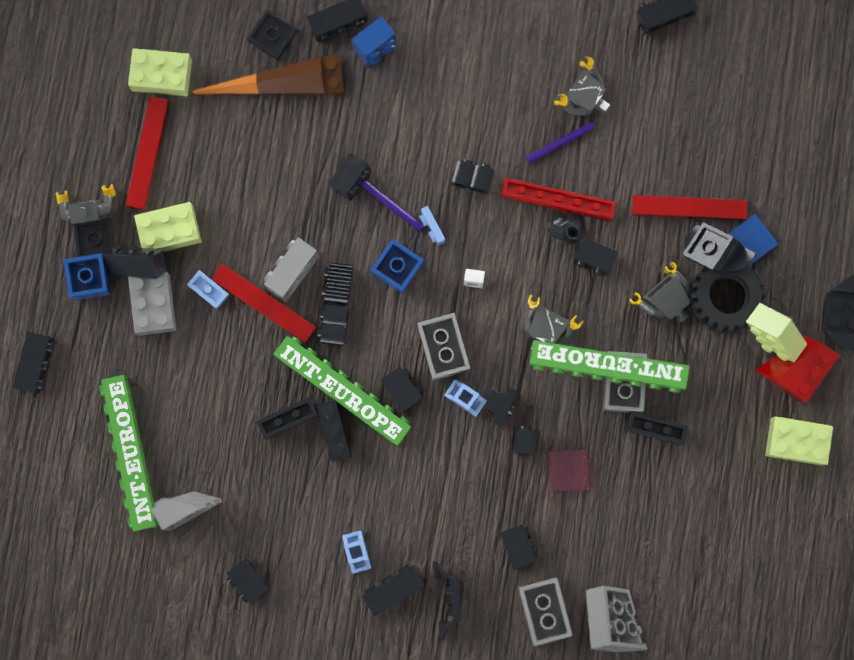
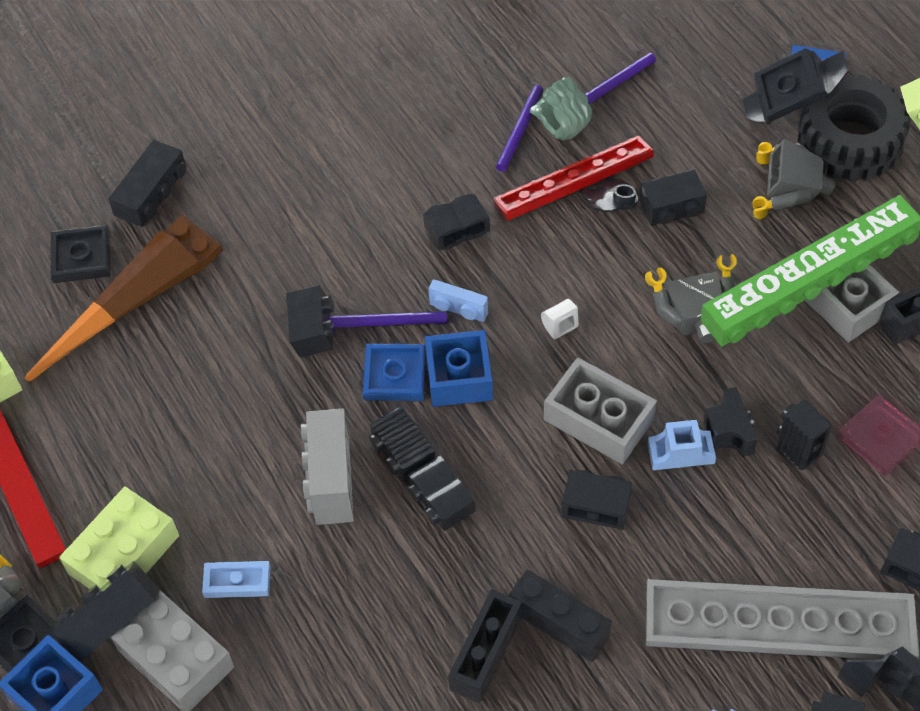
camera: 40 degrees left, 25 degrees down
(263, 303) = (327, 540): red tile -> none
(344, 392) = (504, 559): bright green brick -> none
(369, 238) = (394, 372): none -> blue tile
(374, 42) = (214, 168): blue brick -> none
(430, 516) = (779, 619): none -> light grey plate
(585, 92) = (500, 59): dark grey torso -> none
(587, 155) = (563, 109): none -> sand green hair
(635, 154) = (620, 77): none -> dark purple bar
(689, 207) = (715, 90): red tile -> none

